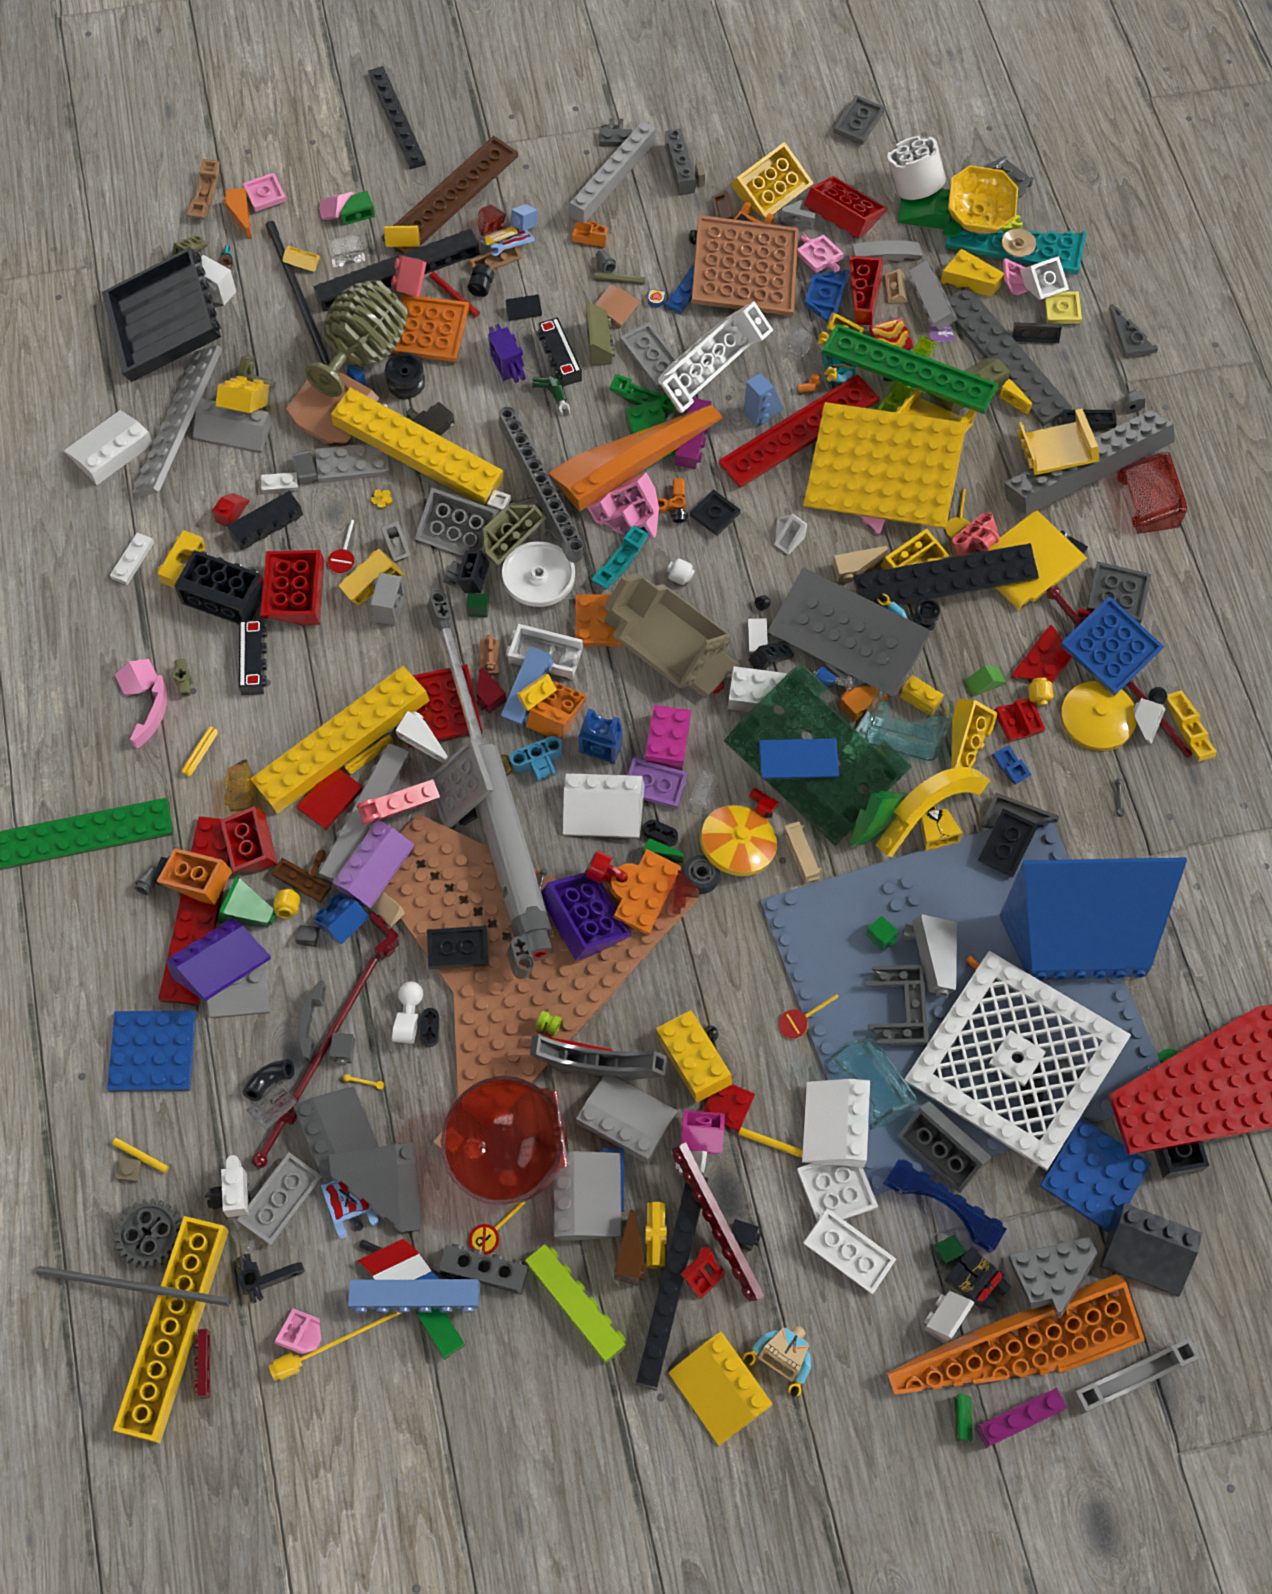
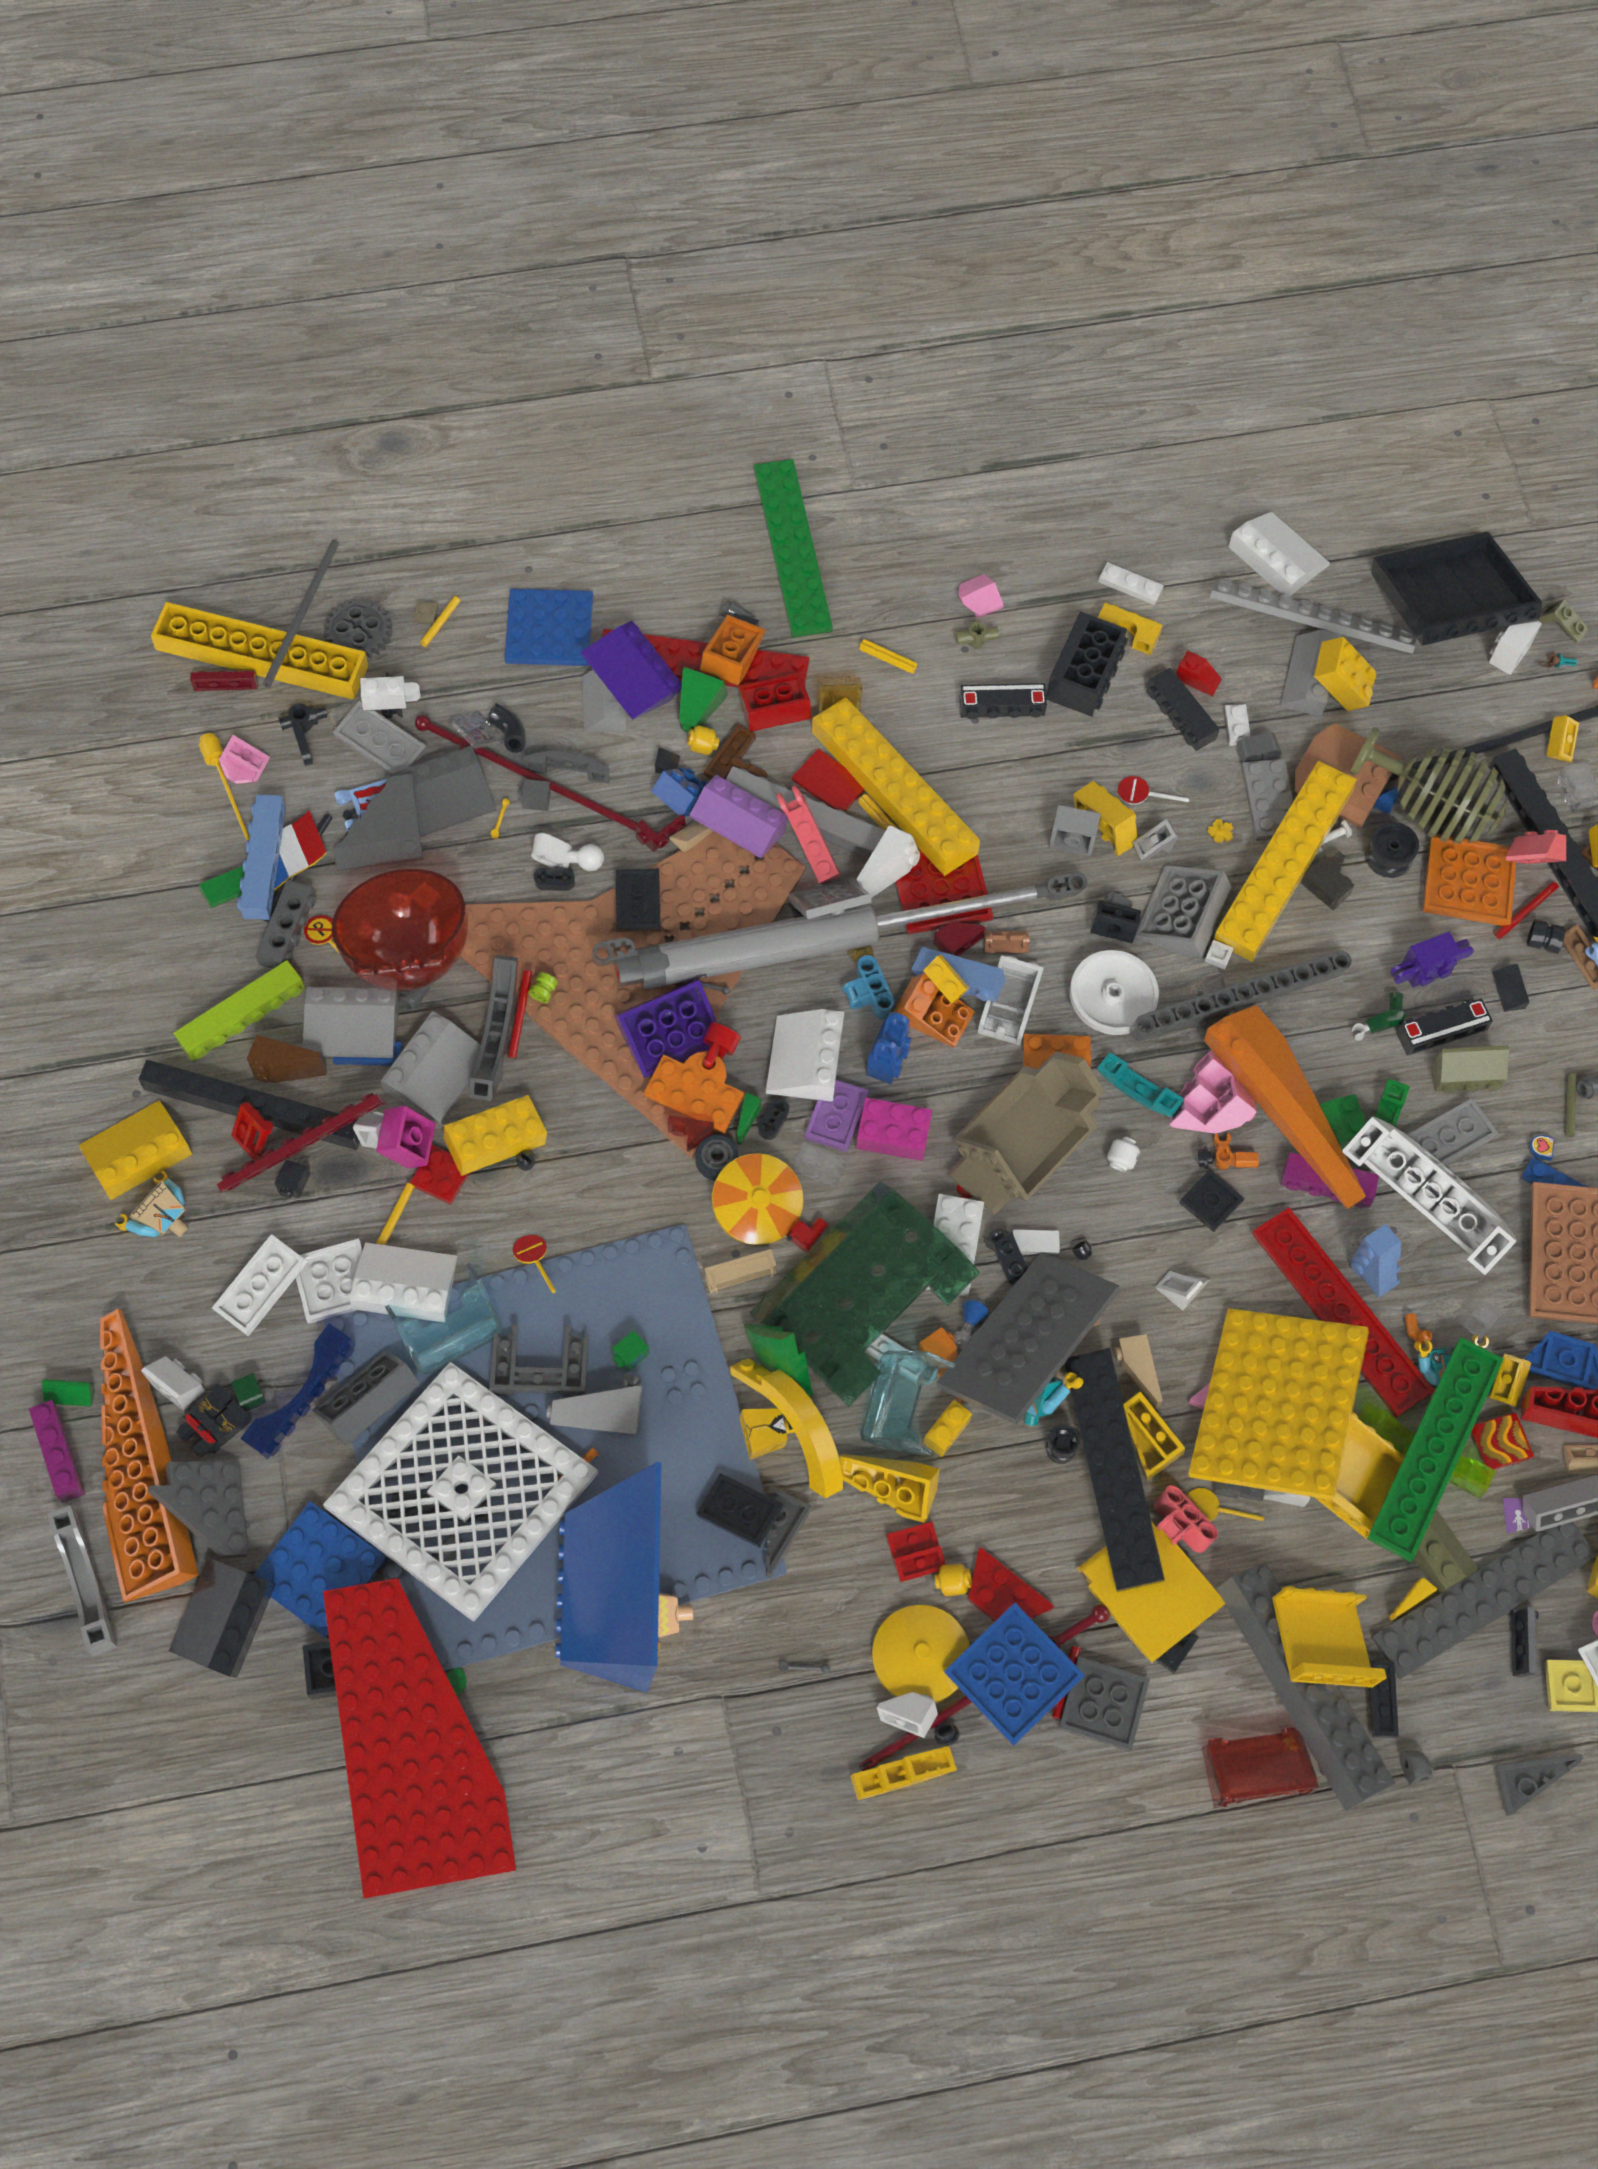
camera: 90 degrees right, 0 degrees up
(143, 733) = (932, 612): bright pink slope -> none
(246, 368) = (1384, 686): olive bracket -> none
(293, 586) = (1091, 736): red slope -> none
(478, 605) = (1074, 929): dark green piece -> none
(509, 530) = (1168, 957): olive wedge -> none
(617, 304) = (1524, 1096): nougat slope -> none
(655, 1235) = (304, 1091): yellow piece -> none
(798, 758) = (845, 1256): blue tile -> none
(985, 680) = (973, 1515): bright green slope -> none
(1010, 765) = (852, 1533): blue slope -> none

